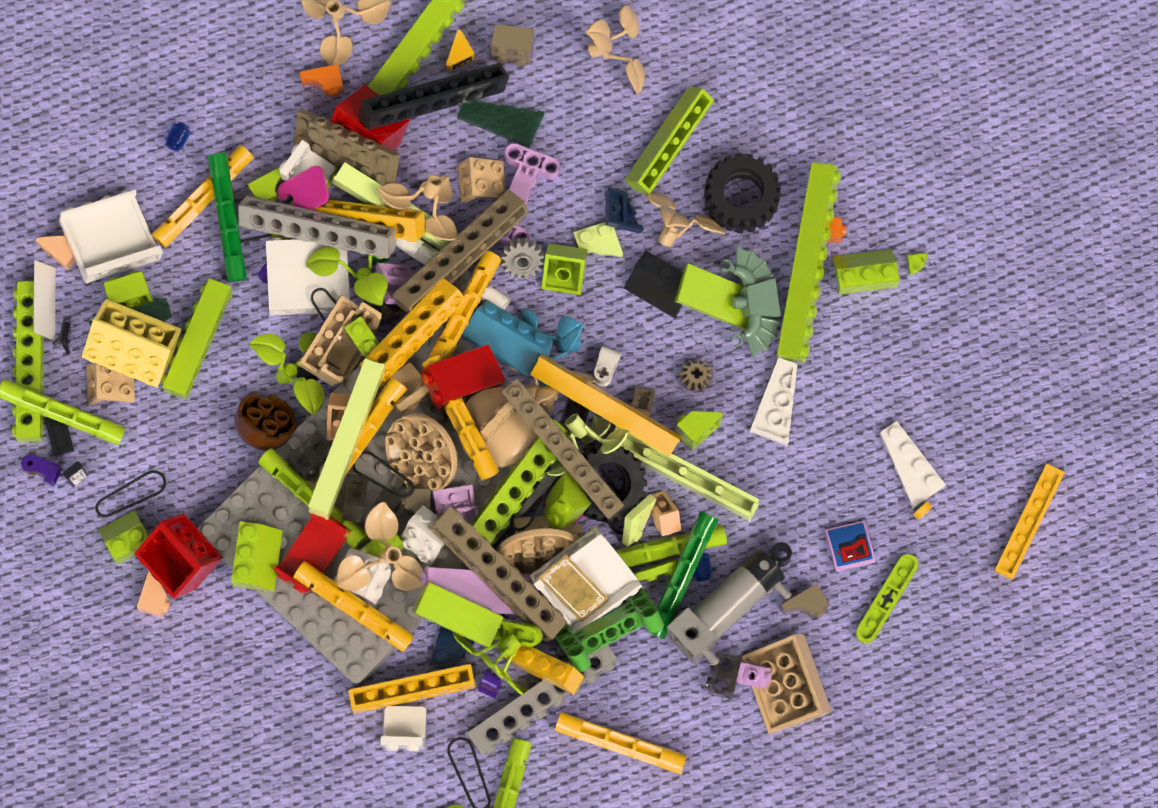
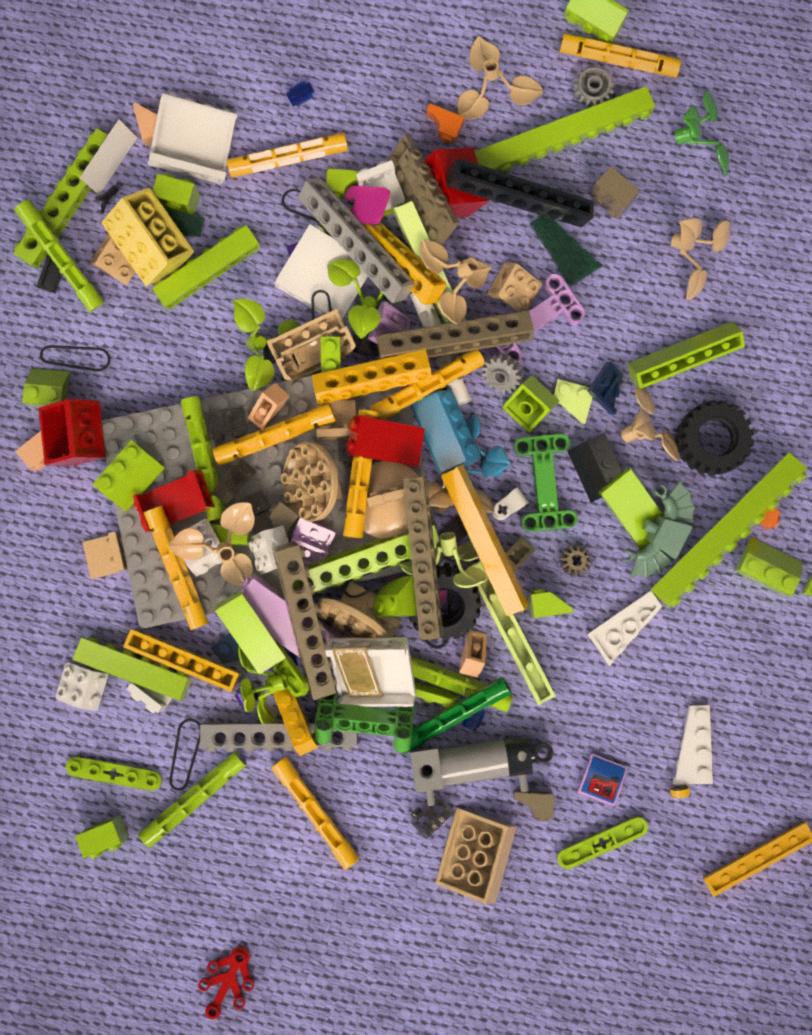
camera: 35 degrees right, 10 degrees up
(36, 465) = (22, 293): dark purple leg -> none
(75, 474) = (38, 313): tile -> none
(227, 217) = (298, 173): green piece -> none
(257, 429) = (202, 371): reddish brown cylinder -> none
(279, 646) = (105, 555): none -> tan bracket
(336, 775) = (81, 687): none -> white bracket
(346, 438) = (256, 431): yellowish green tile -> none
(370, 727) = (132, 669): none -> lime brick
(391, 468) = (281, 479): black piece -> none
(460, 53) = (568, 172): yellow slope -> none
(623, 327) = (545, 482): none -> bright green beam
(636, 520) = (447, 647): yellowish green wing -> none
(747, 671) = (462, 834): lavender brick -> none

